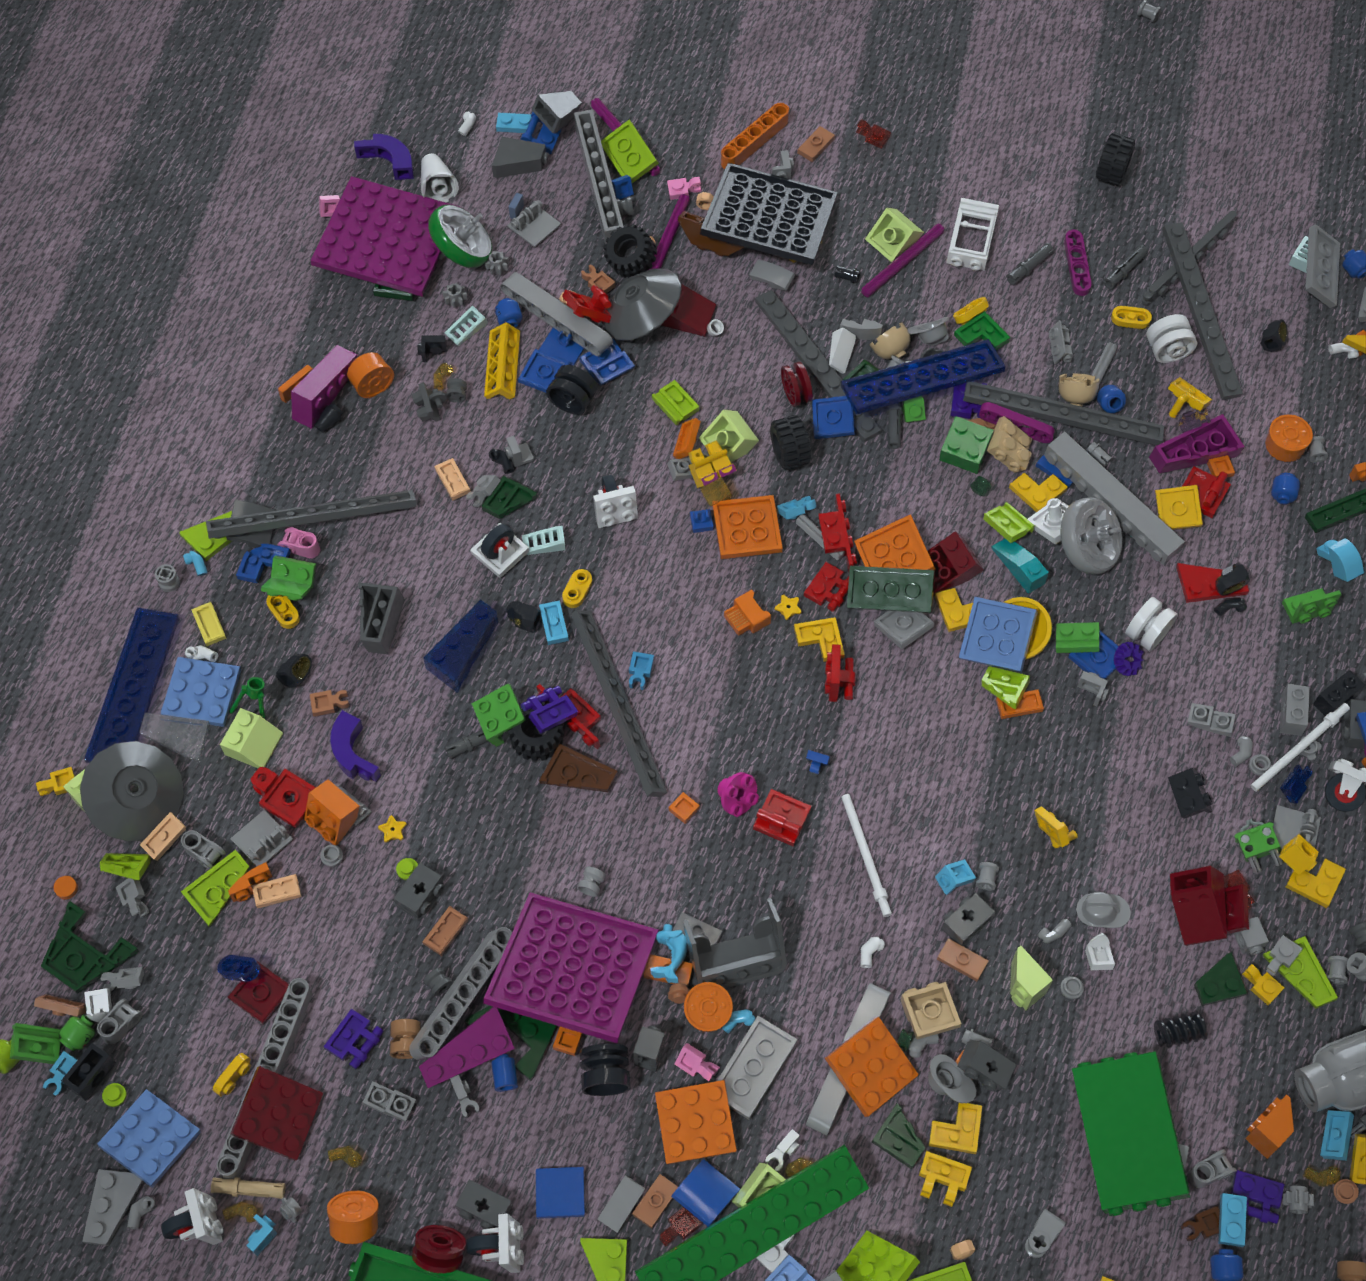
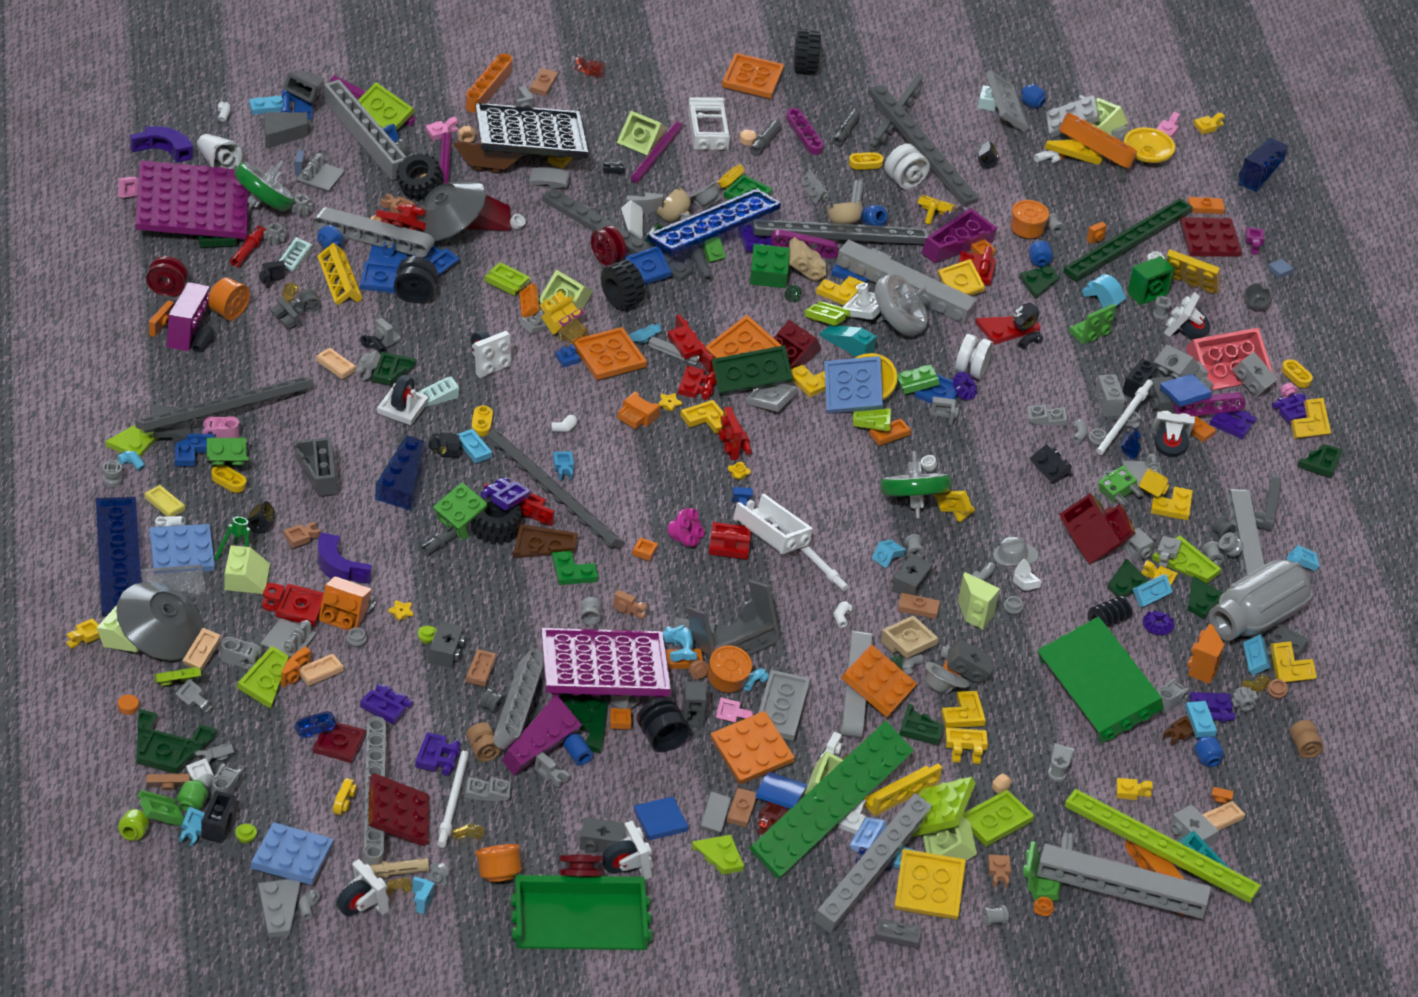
camera: 25 degrees left, 20 degrees down
(318, 333) = (167, 276): none -> dark red wheel
(320, 957) = (382, 703): none -> dark purple plate
(323, 1145) = (446, 827): none -> white bar
(428, 300) = (252, 241): none -> red pin
(592, 820) = (569, 573): none -> green plate
(632, 880) = (626, 603): none -> nougat plate
(663, 615) = (566, 425): none -> white arm
(825, 724) = (739, 471): none -> yellow plate
(830, 789) = (756, 521): none -> white door
(846, 1224) = (902, 789): none -> yellow fence
(1010, 259) = (747, 137): none -> light nougat tile
(1014, 797) = (915, 484): none -> green wheel
(1047, 176) = (753, 75): none -> orange plate
(1049, 756) = (929, 463): none -> white hinge
(1232, 1063) = (1158, 628): none -> dark purple gear
(1244, 1007) = (1152, 590): none -> medium azure plate
(1272, 522) = (1039, 280): none -> dark green wing
(1303, 1030) = (1202, 598): none -> dark green wing

